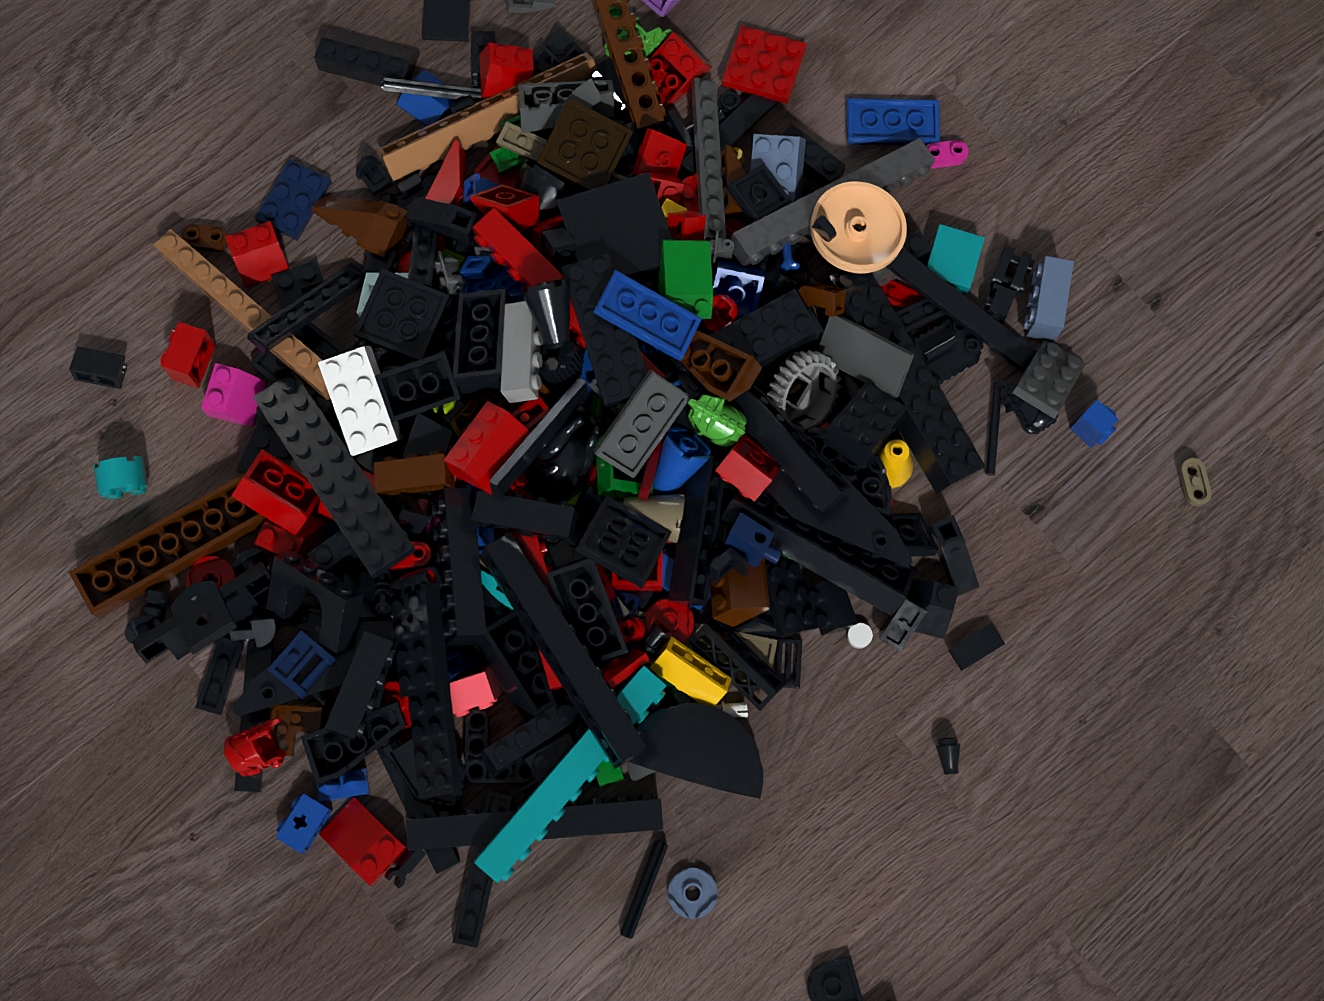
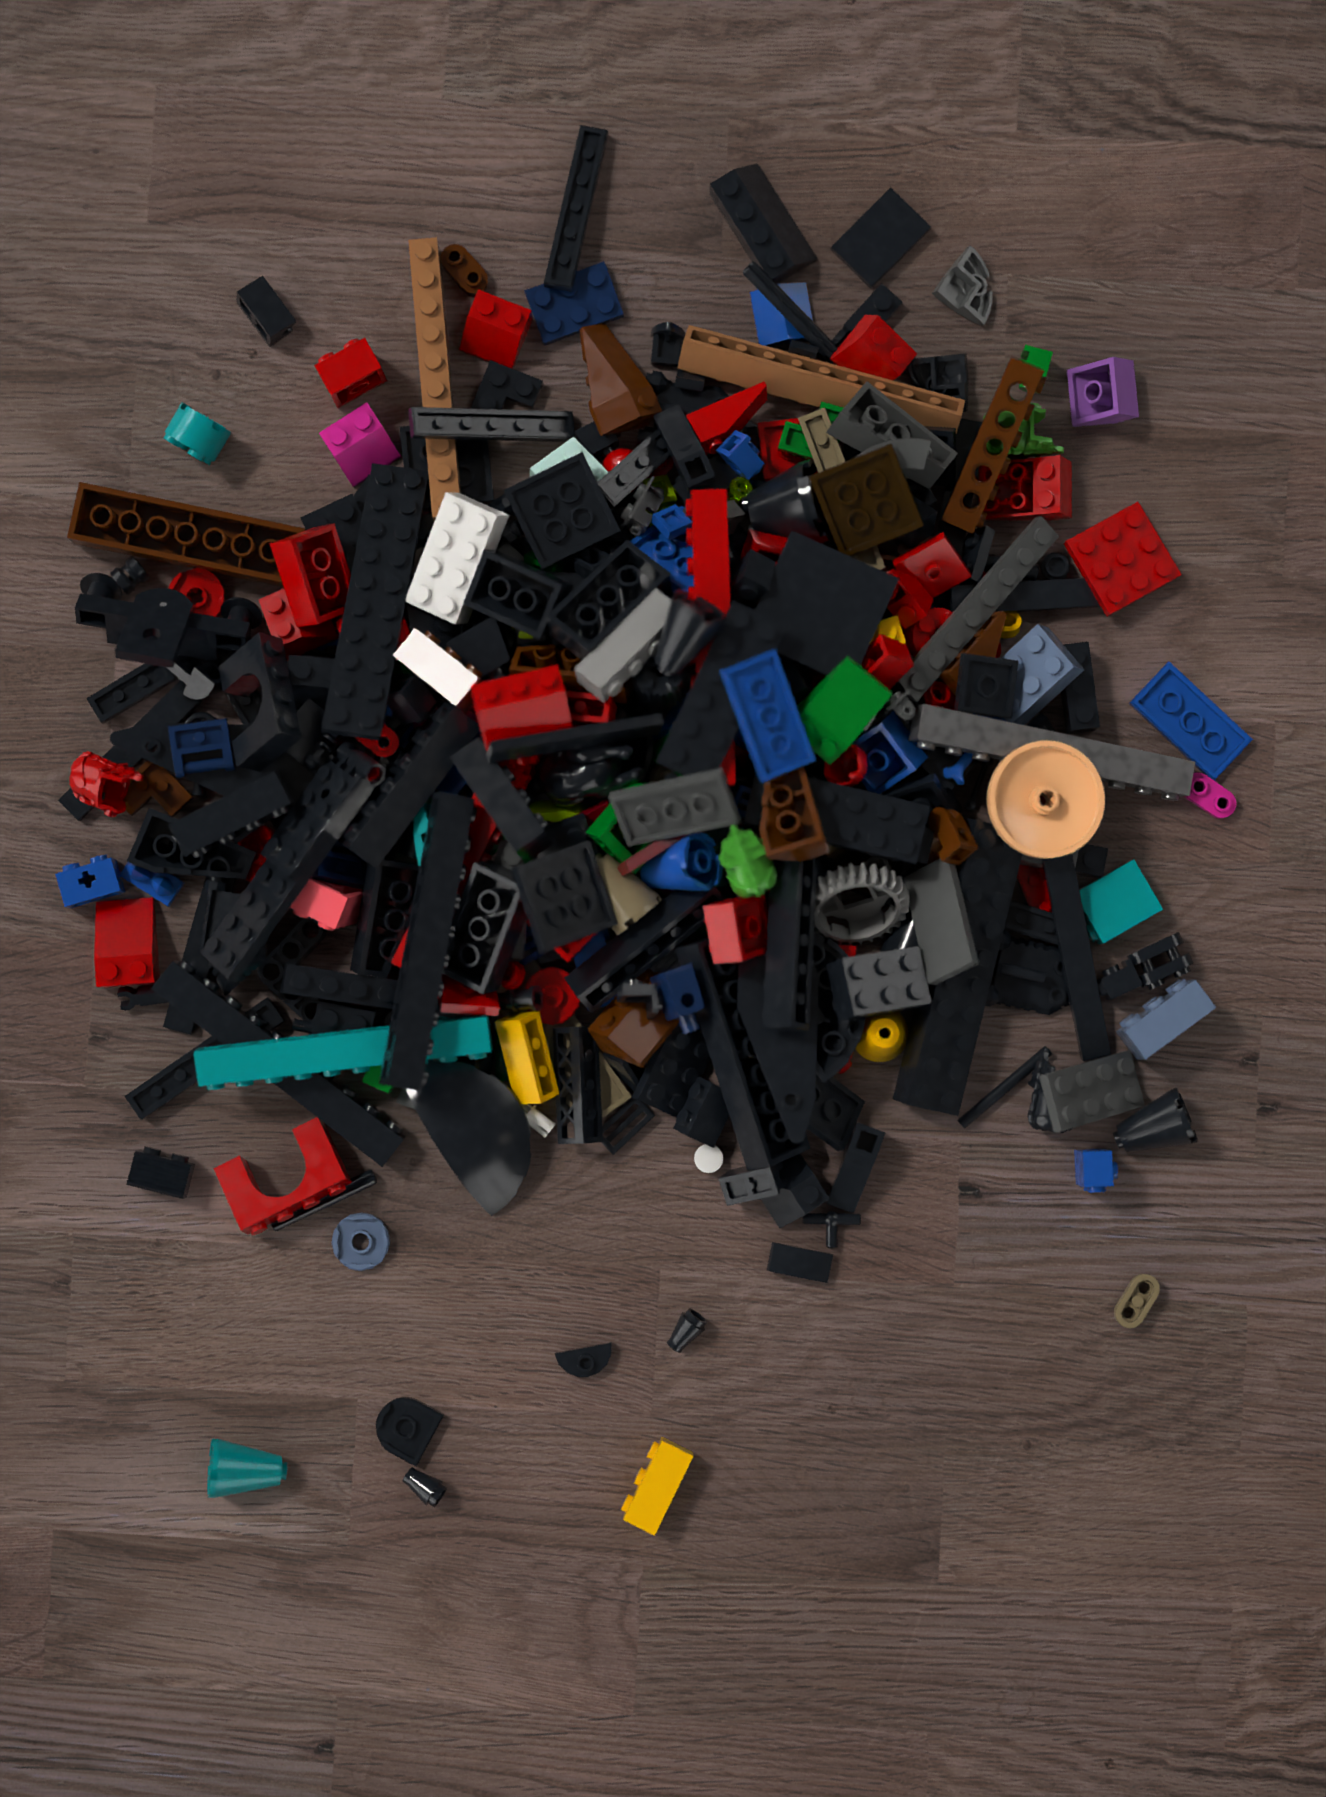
camera: 50 degrees right, 10 degrees up
(243, 143) = (576, 208): none -> black tile
(515, 205) = (749, 494): red slope -> none
(522, 971) = (161, 1173): none -> black brick
(609, 932) = (323, 1176): none -> red arch
(824, 228) = (1008, 776): black tile -> none
(905, 834) = (585, 1360): none -> black plate
(970, 603) = (832, 1220): none -> black piece
(1025, 870) = (656, 1485): none -> yellow brick
(1105, 365) = (1157, 1125): none -> black cone

